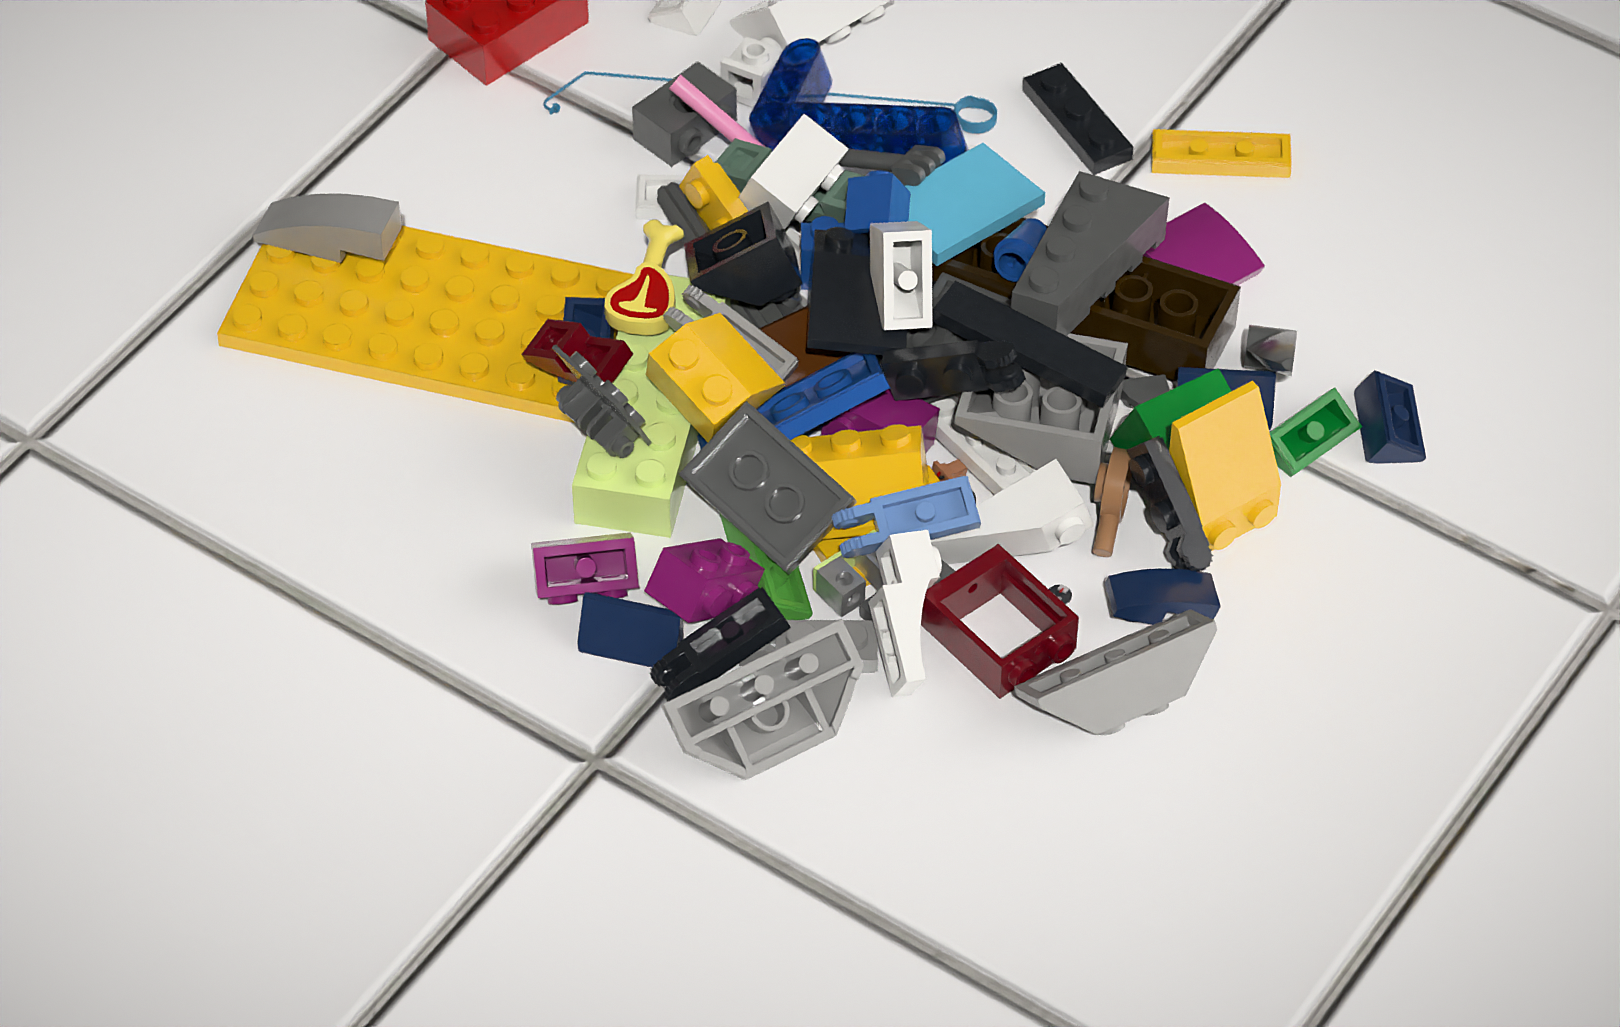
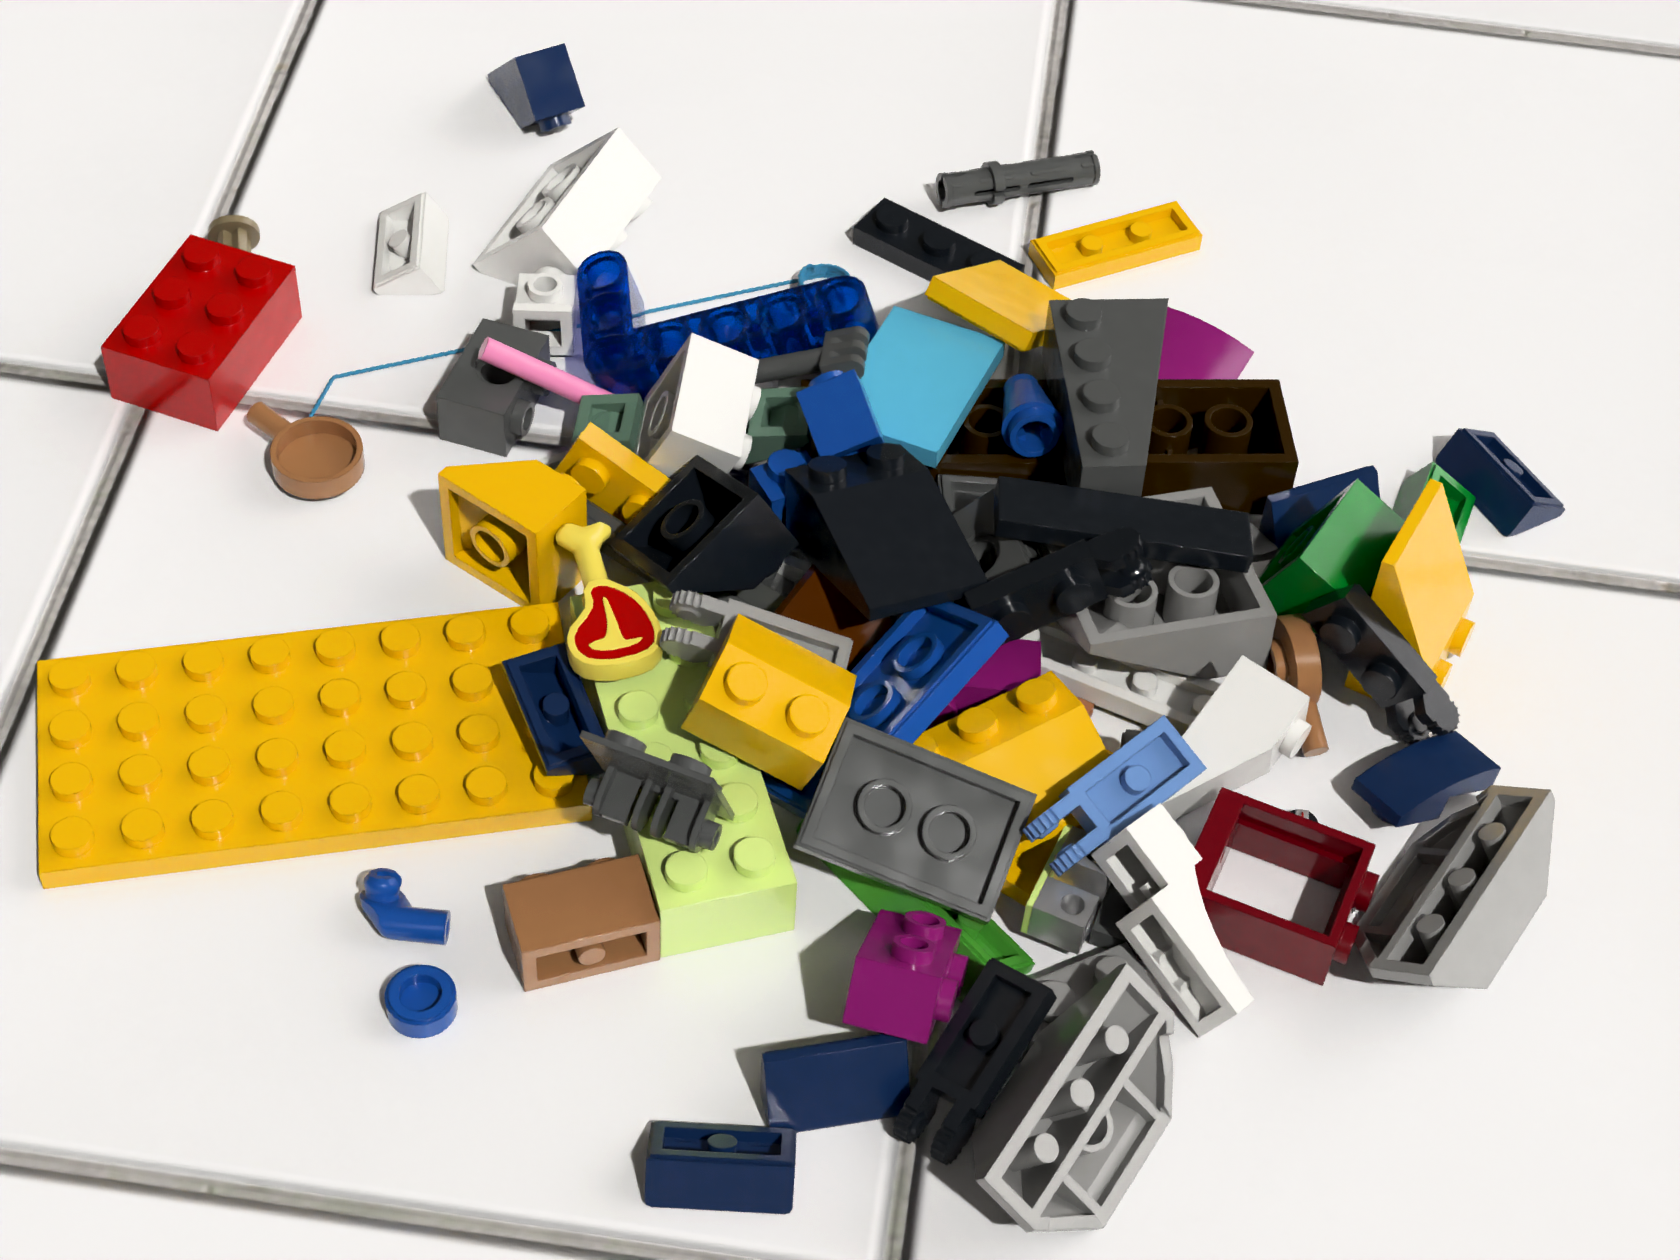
camera: 30 degrees left, 0 degrees up
(331, 225) = (131, 672): light grey slope -> none
(407, 493) = (421, 1001): none -> blue tile
(420, 436) = (394, 914): none -> blue arm
(526, 479) = (581, 922): none -> medium nougat brick
(532, 655) = (720, 1167): none -> dark blue slope
(536, 121) = (311, 455): none -> medium nougat piece
(584, 565) = (732, 1015): magenta brick -> none
(604, 354) = (546, 727): dark red slope -> none
(622, 201) = (505, 525): none -> yellow slope
(902, 274) = (943, 485): white slope -> none
(1057, 157) = (997, 301): none -> yellow tile
(1177, 79) = (997, 181): none -> dark grey pin
(1270, 349) = (1352, 440): dark grey piece -> none

